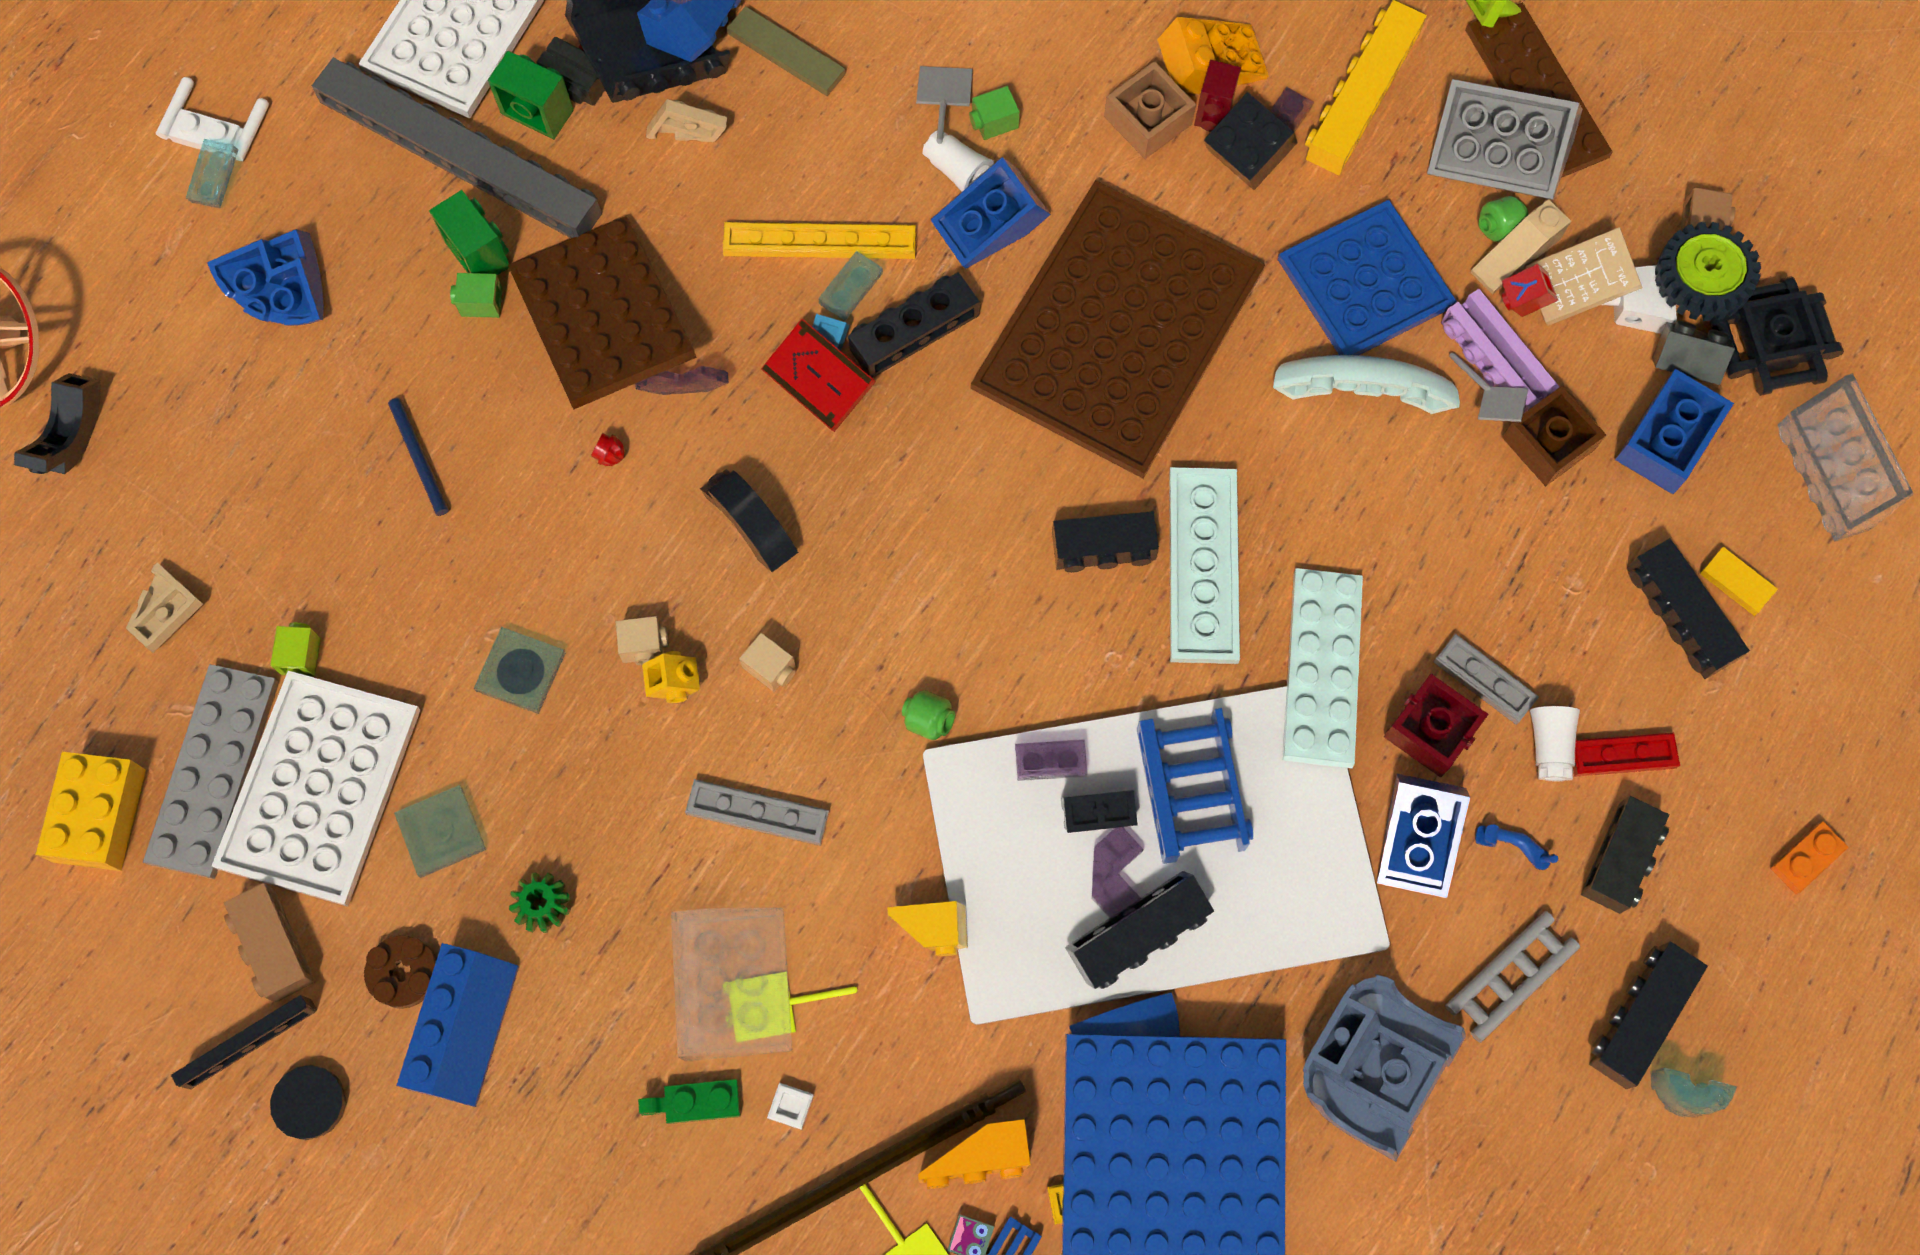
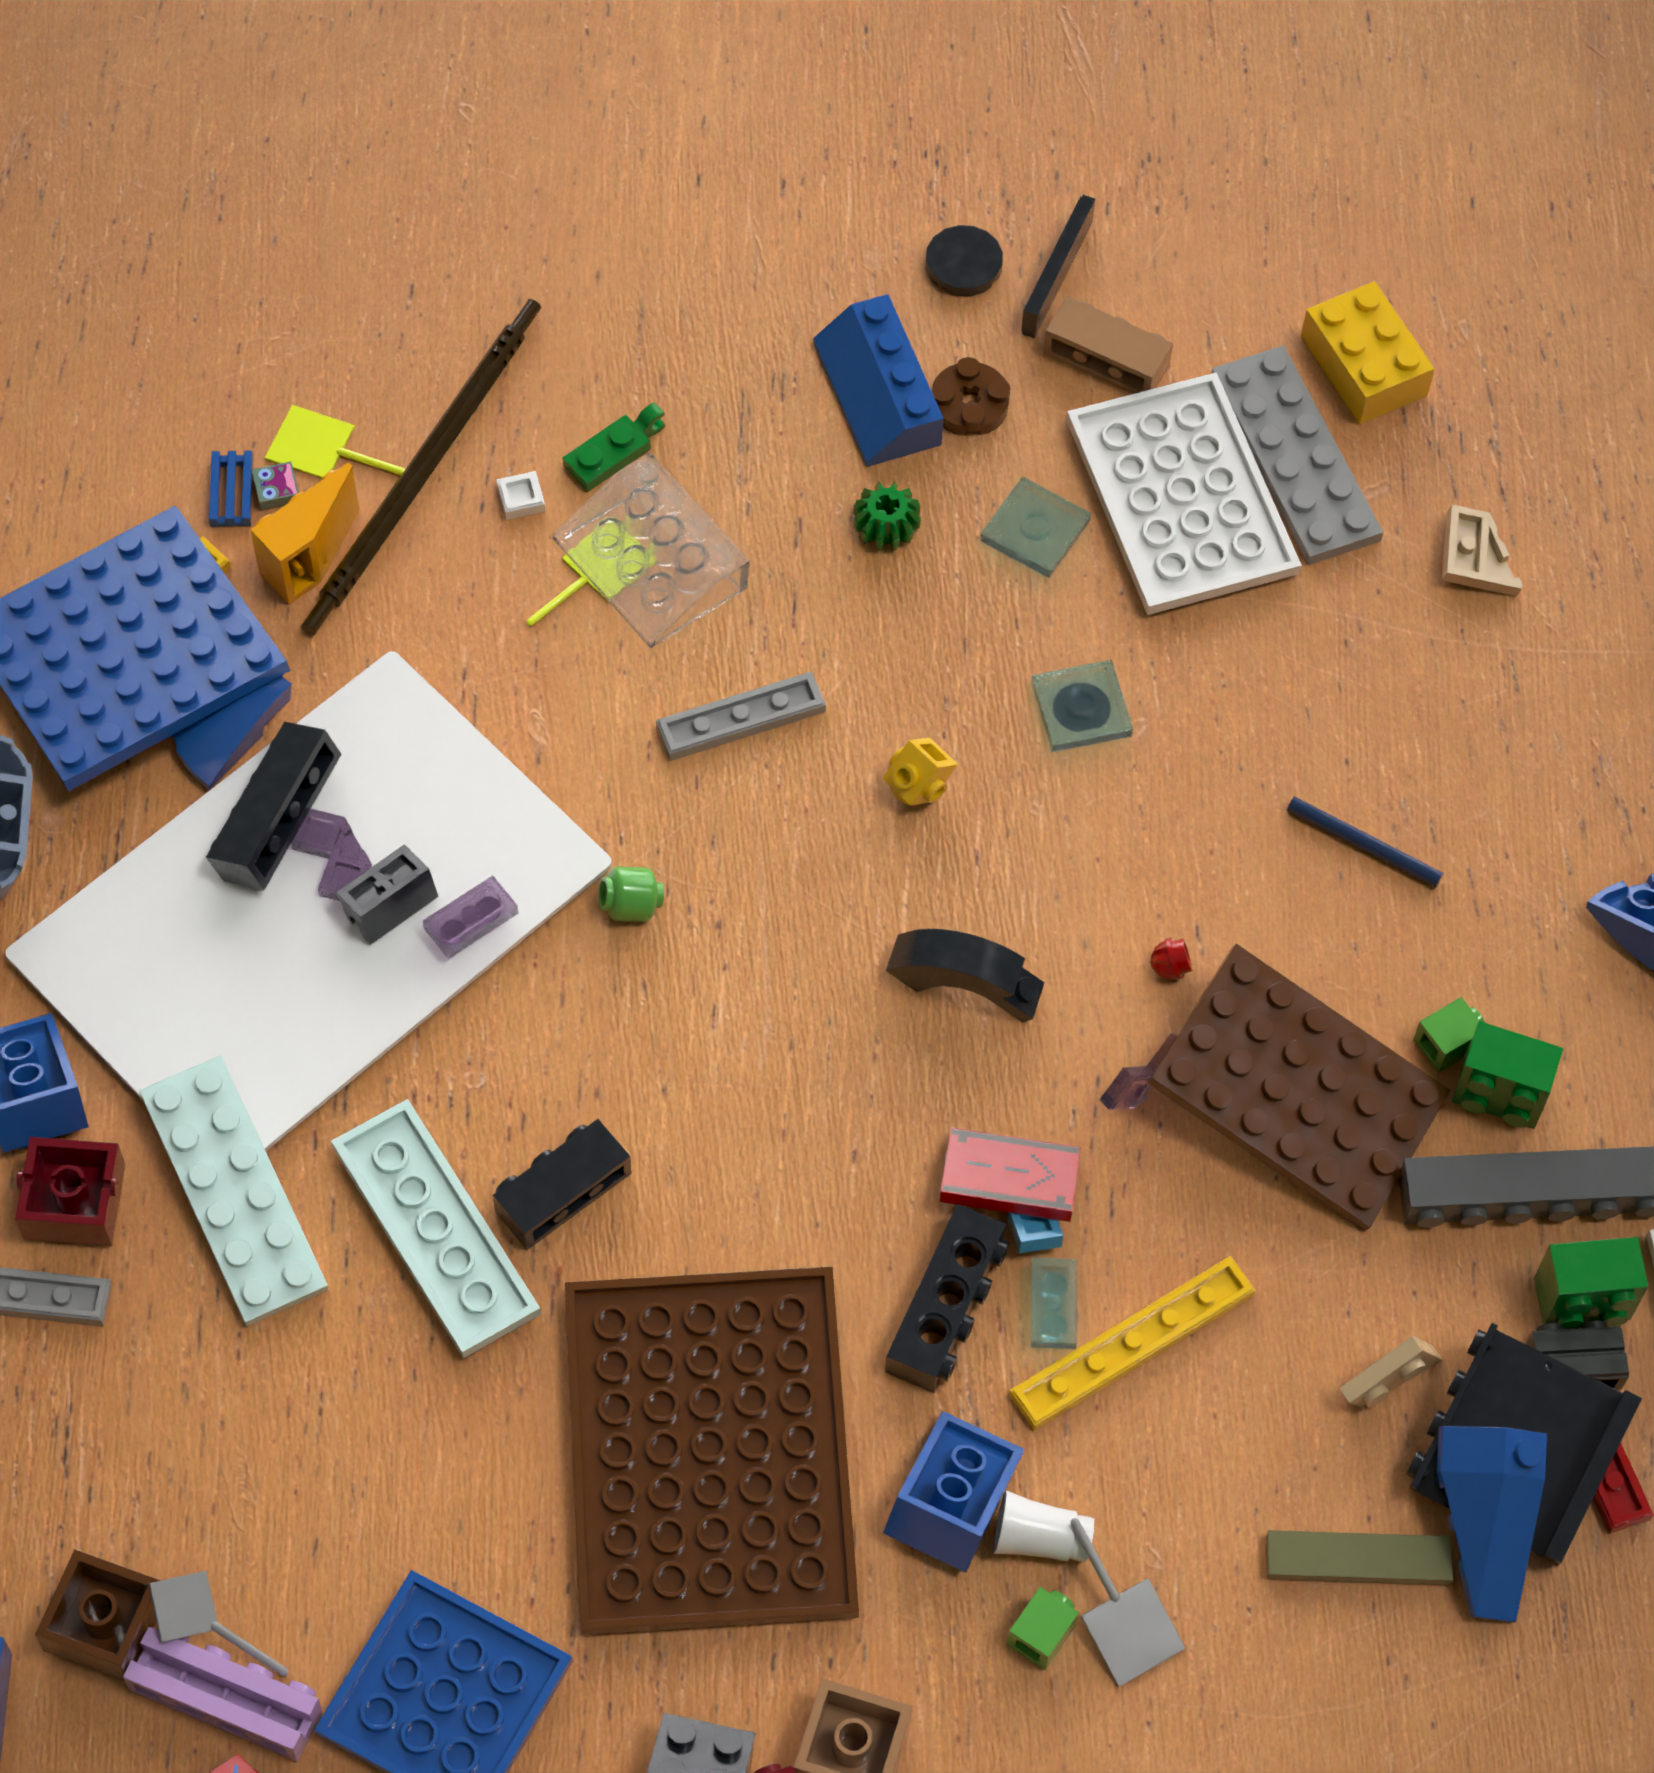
camera: 145 degrees right, 10 degrees down
(295, 649) = (1311, 588): lime brick -> none
(640, 639) = (981, 794): tan brick -> none
(768, 663) = (833, 848): tan brick -> none
(934, 925) = (489, 701): yellow slope -> none
(1167, 807) = (318, 936): blue fence -> none
(1367, 377) = (365, 1547): light aqua brick -> none

